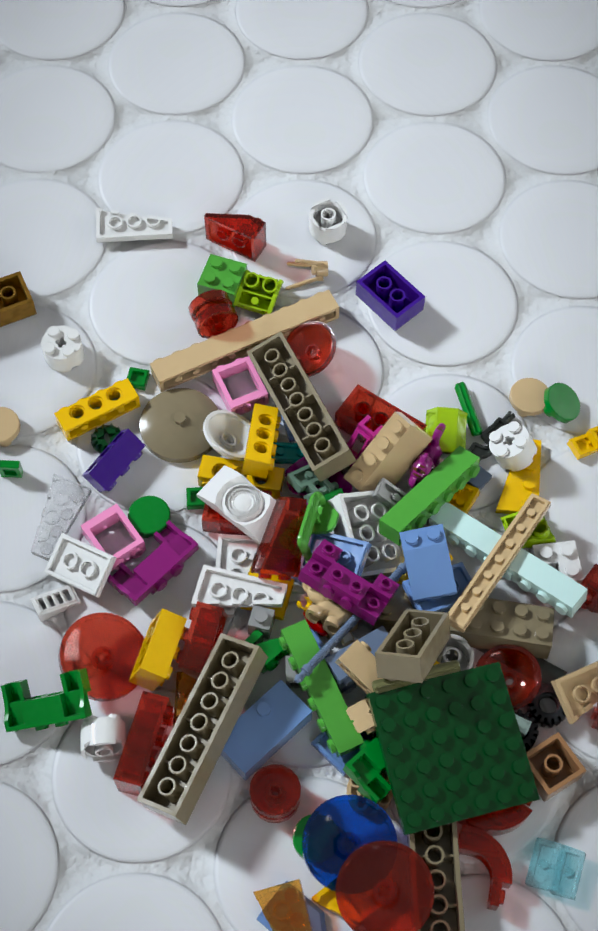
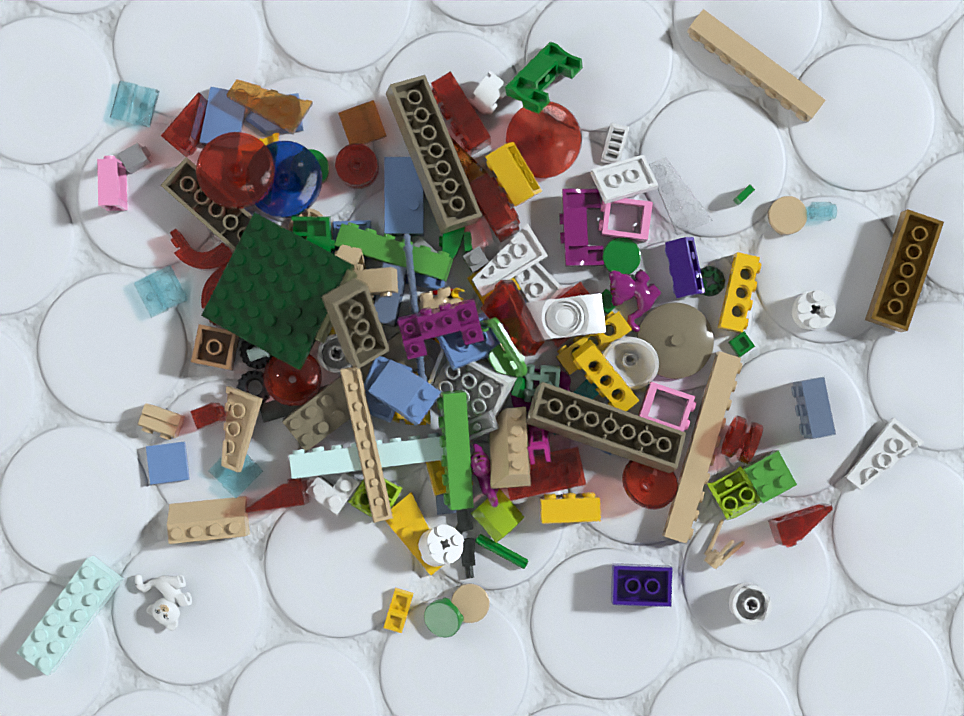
camera: 135 degrees right, 25 degrees up
(140, 288) = (813, 408): none -> sand blue brick
(172, 490) = (624, 288): none -> magenta animal
(231, 831) = (362, 123): none -> clear orange tile
(387, 380) = (570, 508): none -> yellow brick

